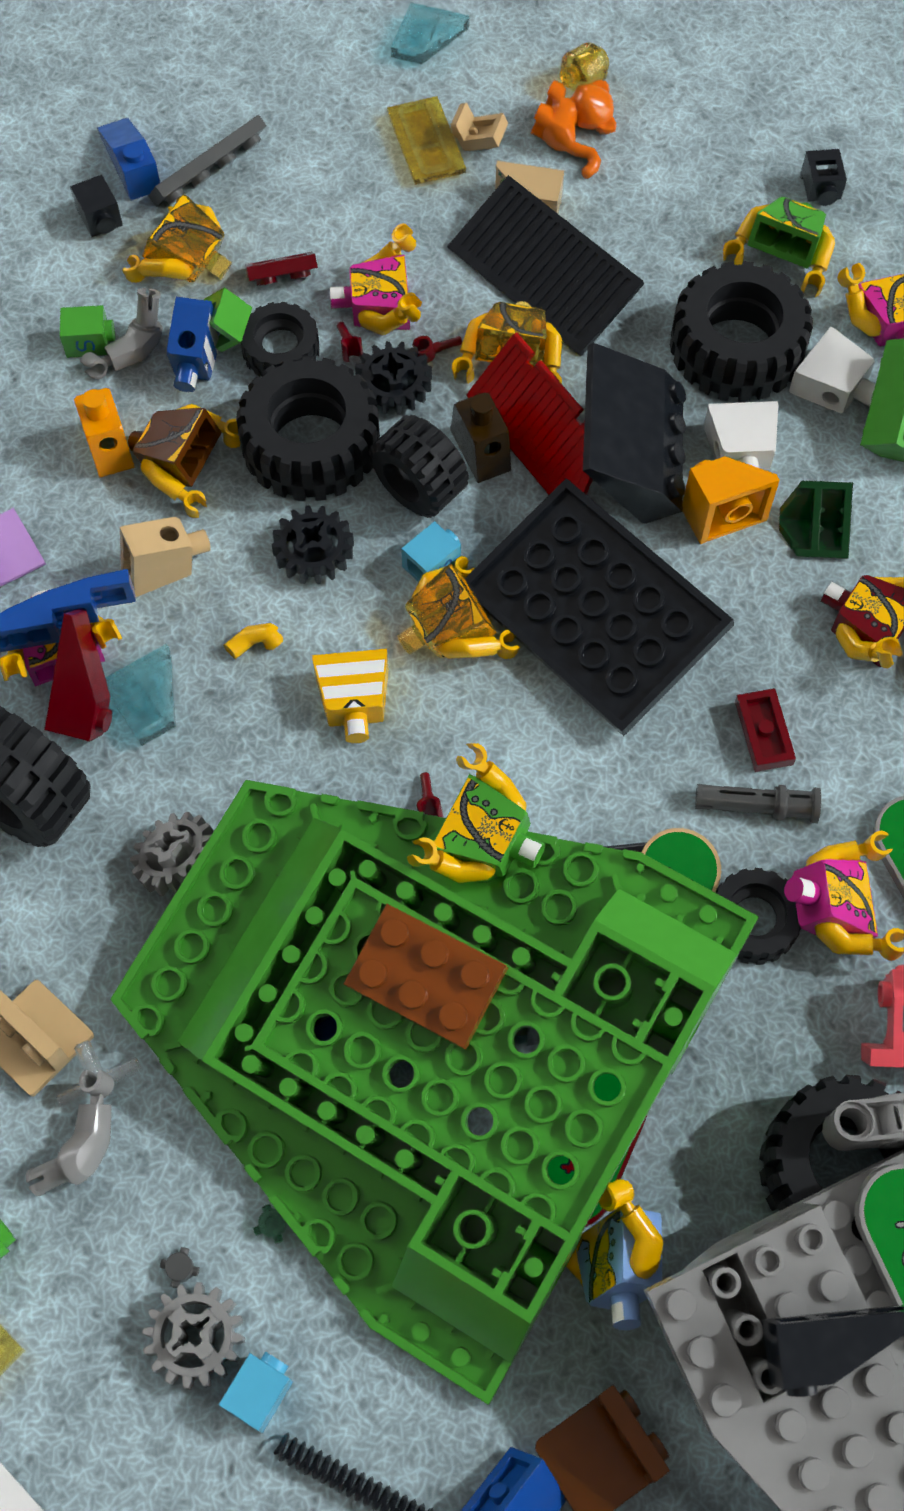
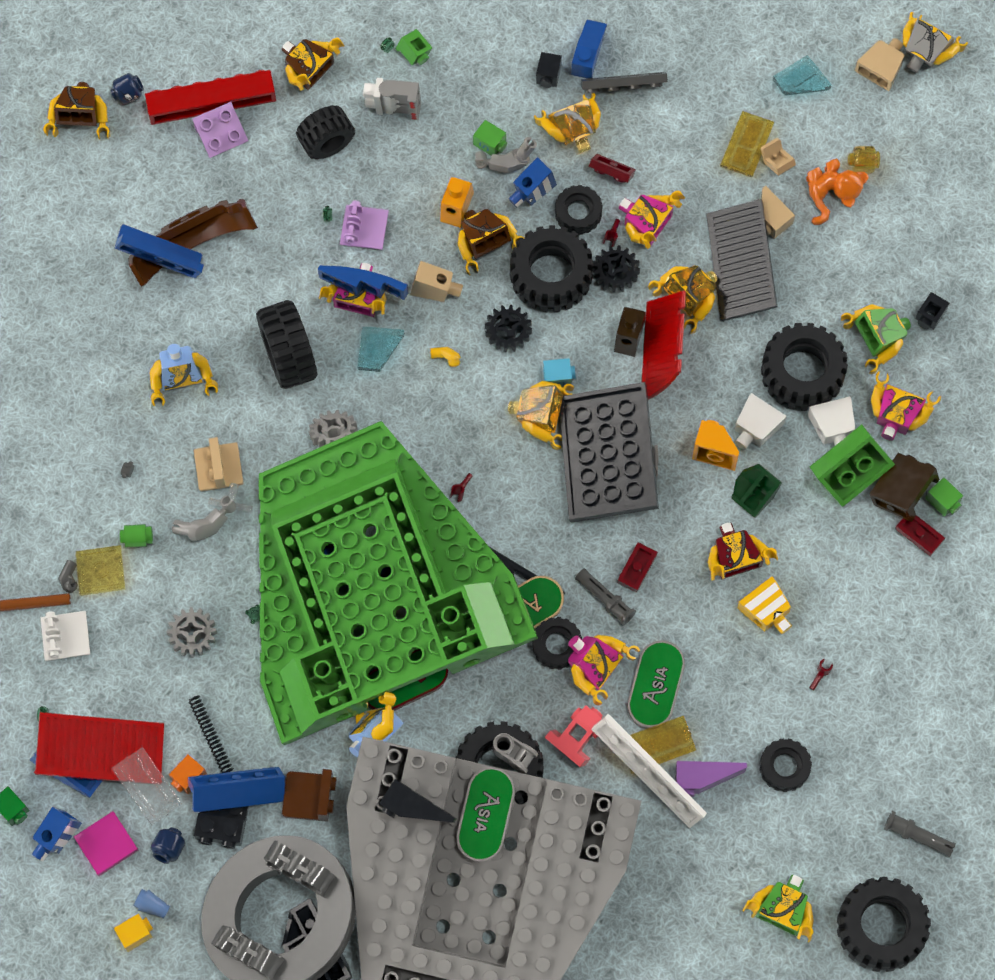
camera: 40 degrees right, 5 degrees up
(79, 687) = (349, 322): dark red slope -> none
(179, 1267) = (206, 603): dark grey piece -> none
(228, 318) = (558, 182): bright green panel -> none
(257, 1390) = (199, 671): medium azure brick -> none
(353, 689) = (469, 412): yellow torso -> none
(419, 466) = (583, 326): black tyre -> none
(425, 342) = (651, 265): dark red hand -> none
(426, 976) = (381, 557): dark orange plate -> none
(482, 827) = (454, 515): torso -> none
(634, 433) = (697, 381): black slope -> none

